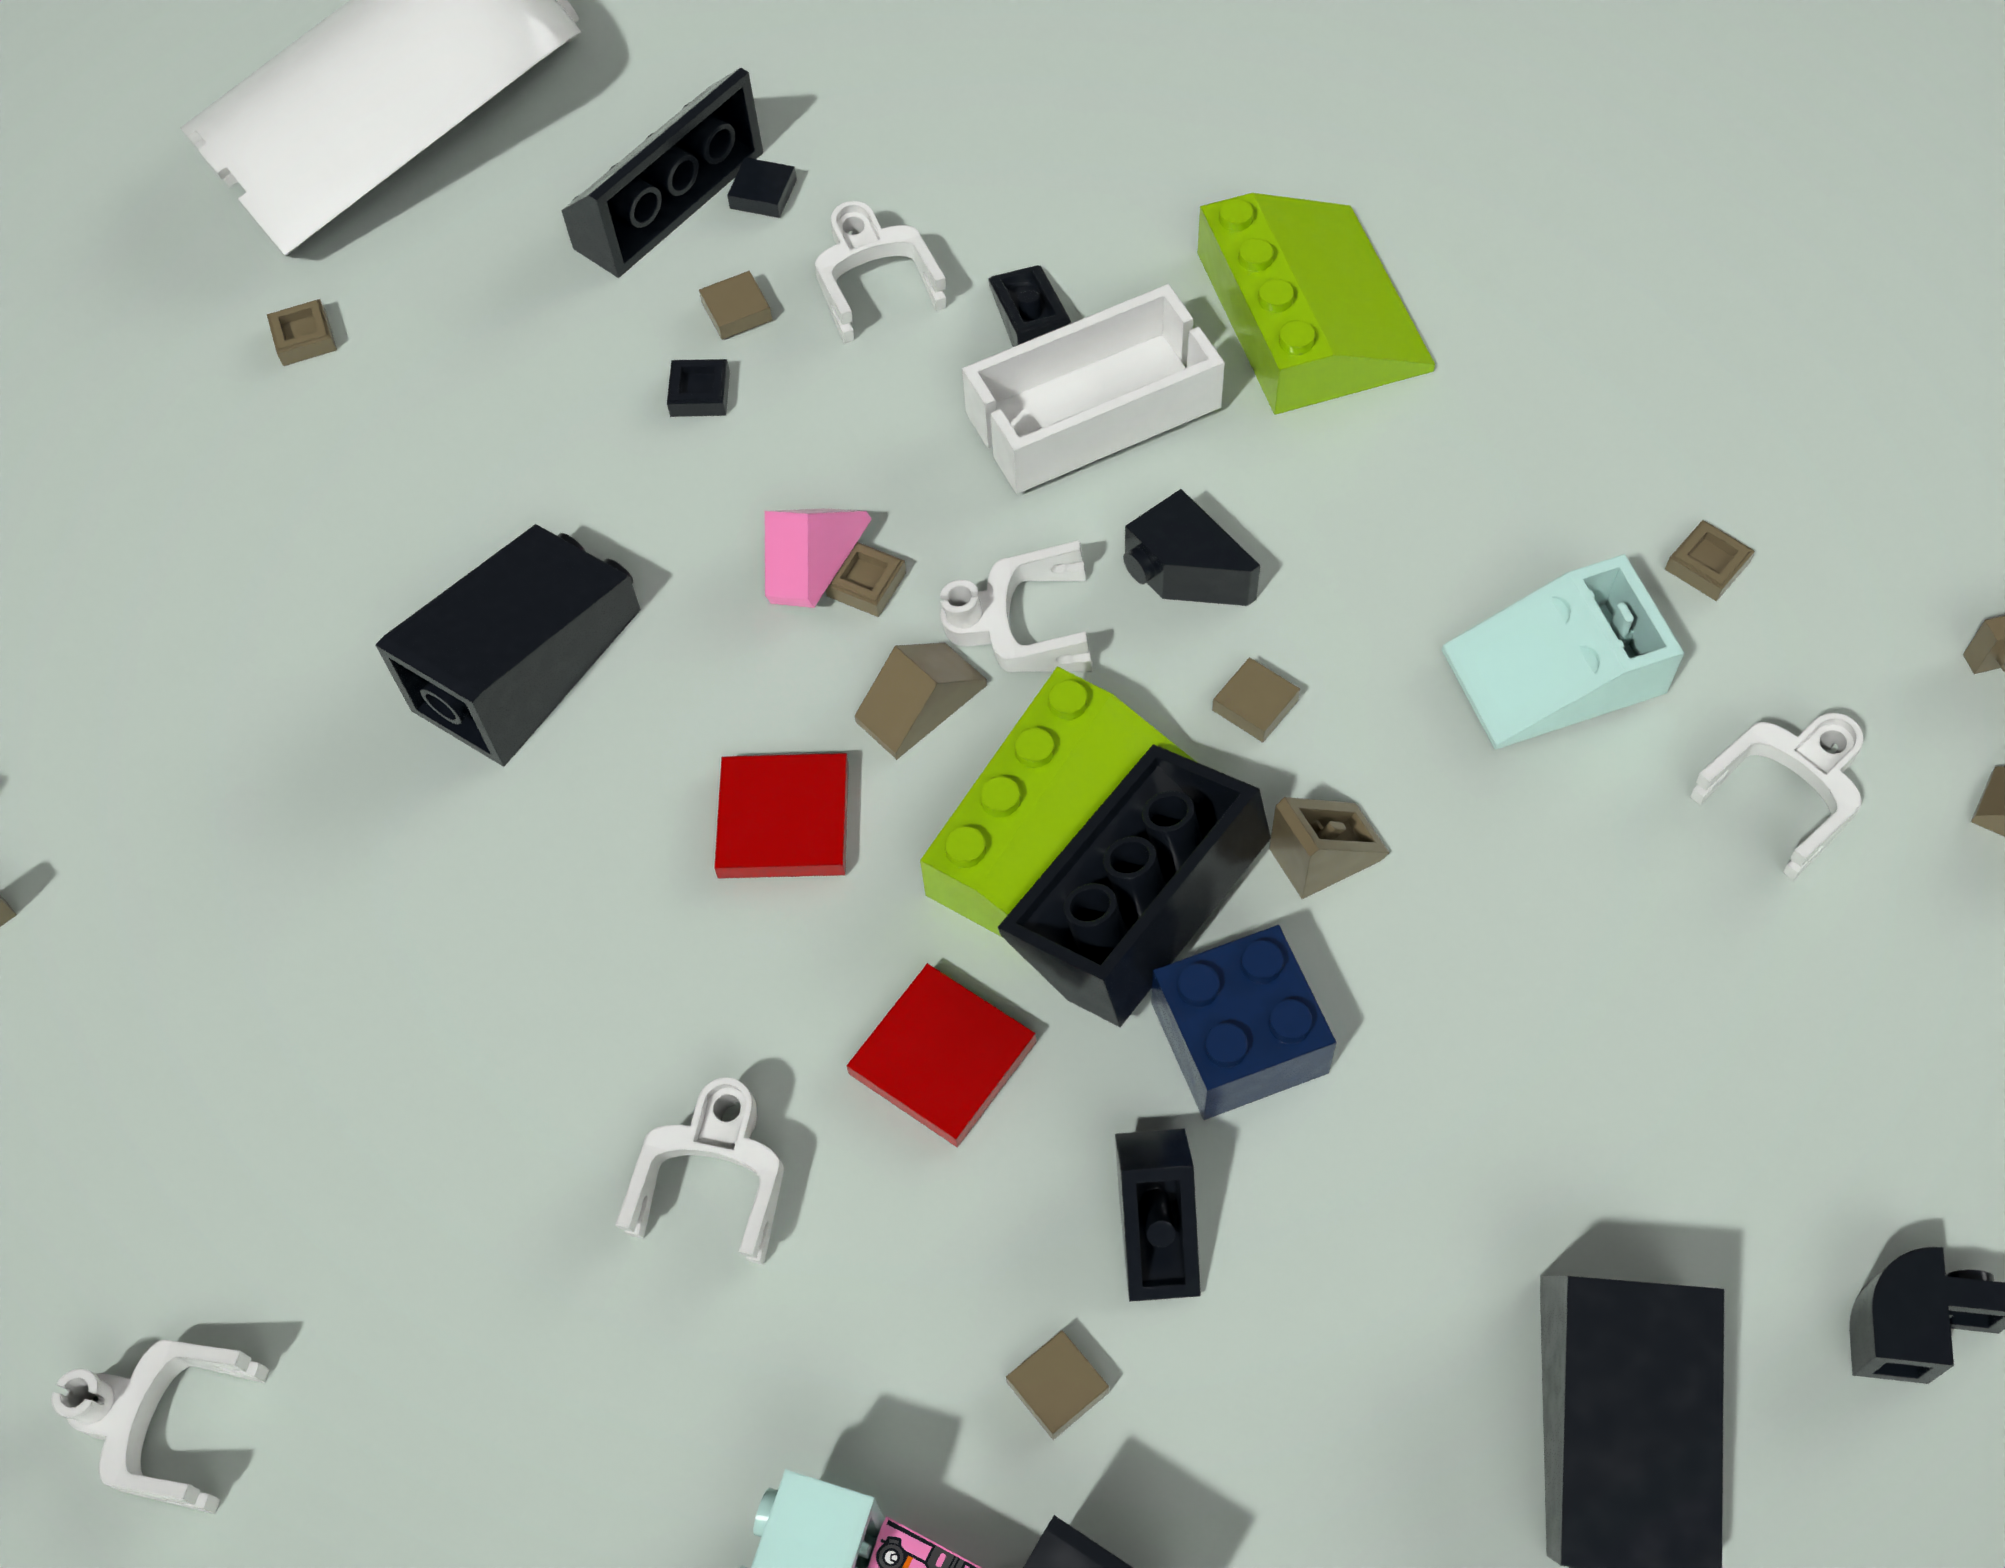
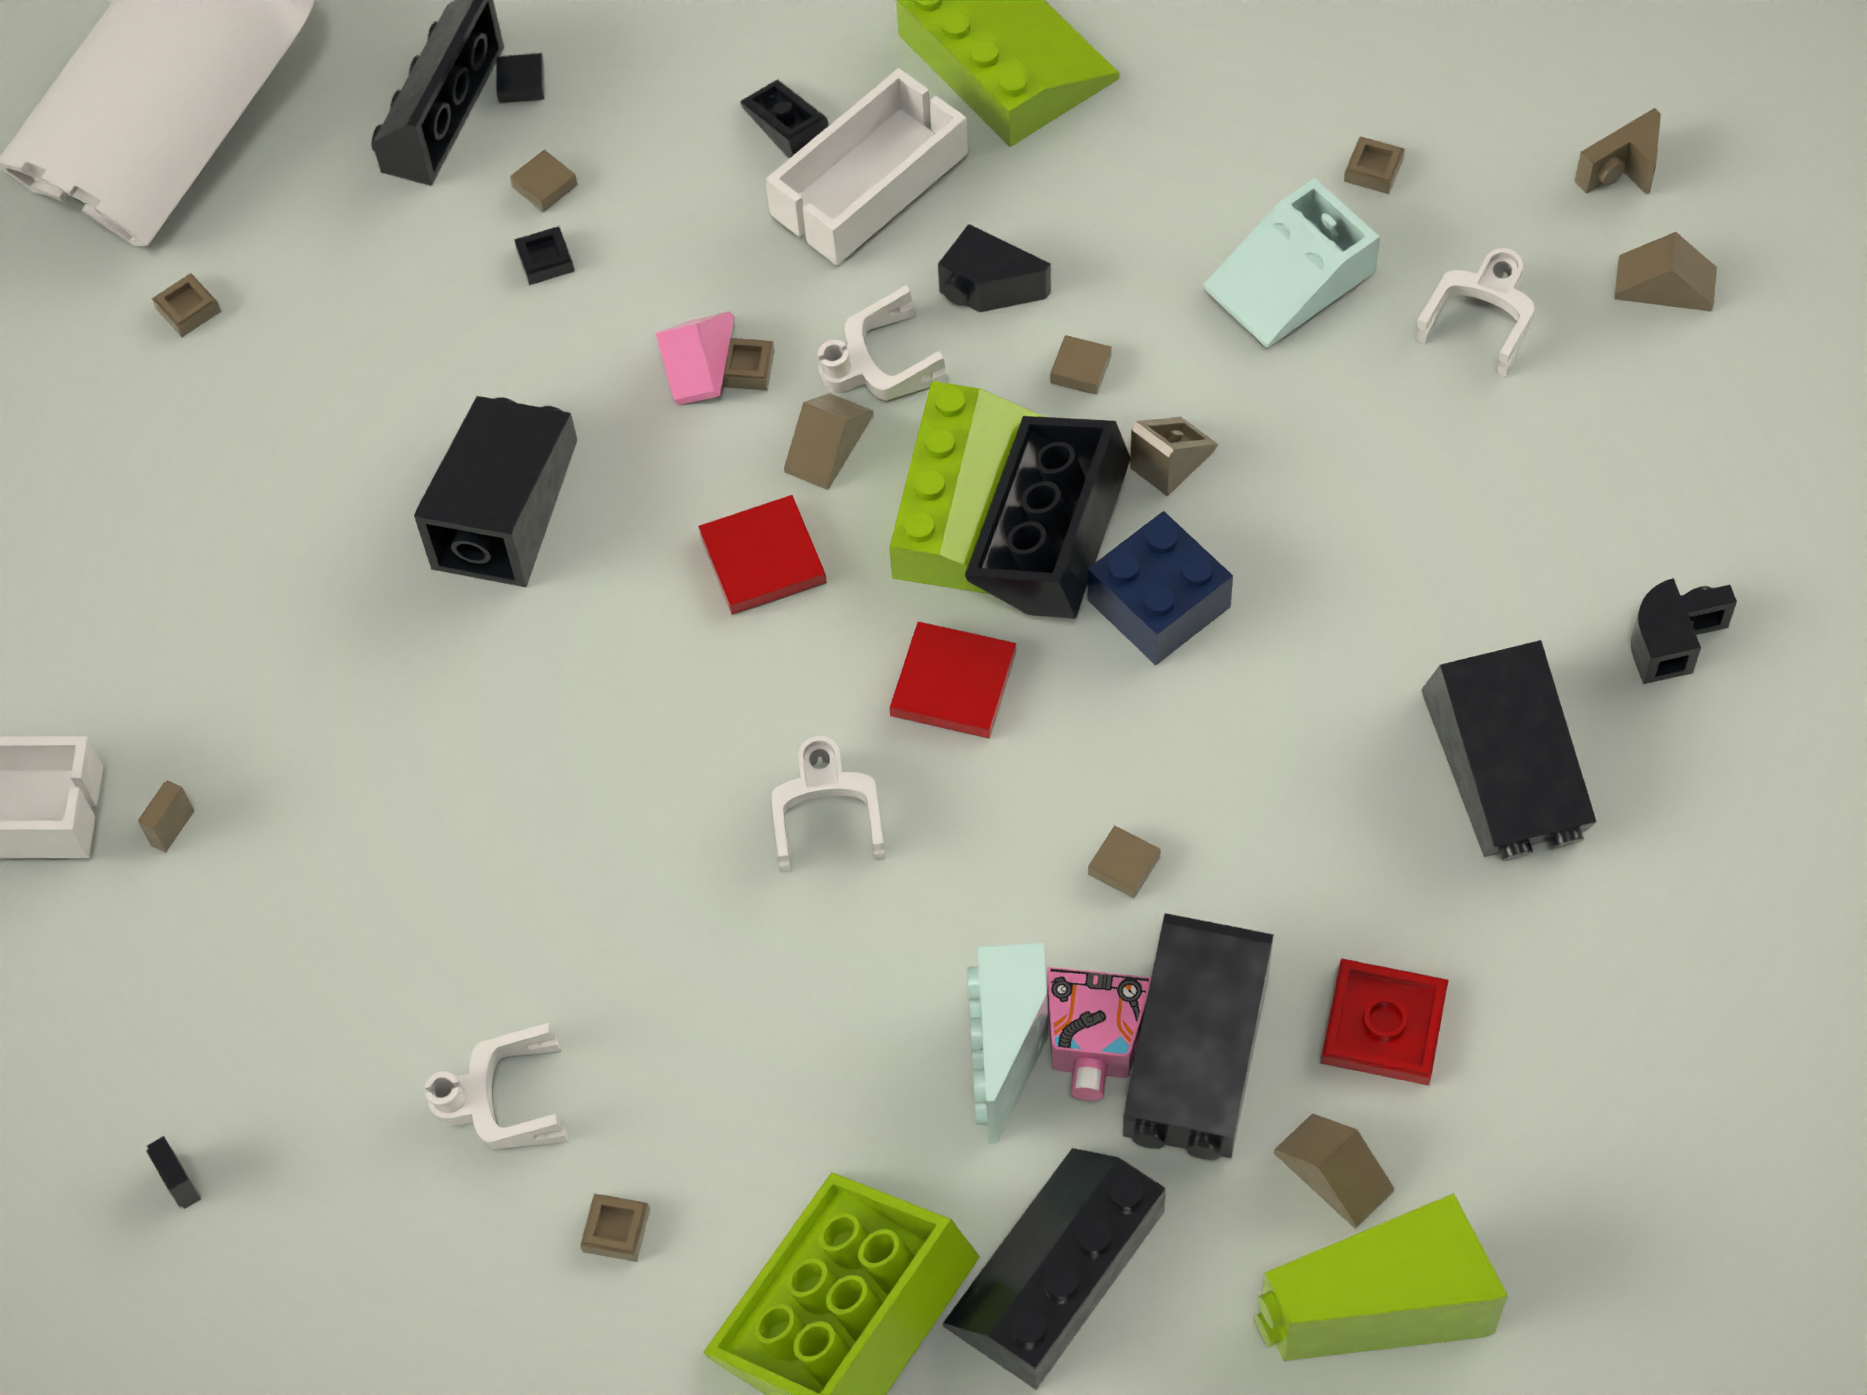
camera: 20 degrees left, 0 degrees up
(868, 244) = (628, 98): white piece -> none
(1158, 1214) = (1150, 730): black slope -> none

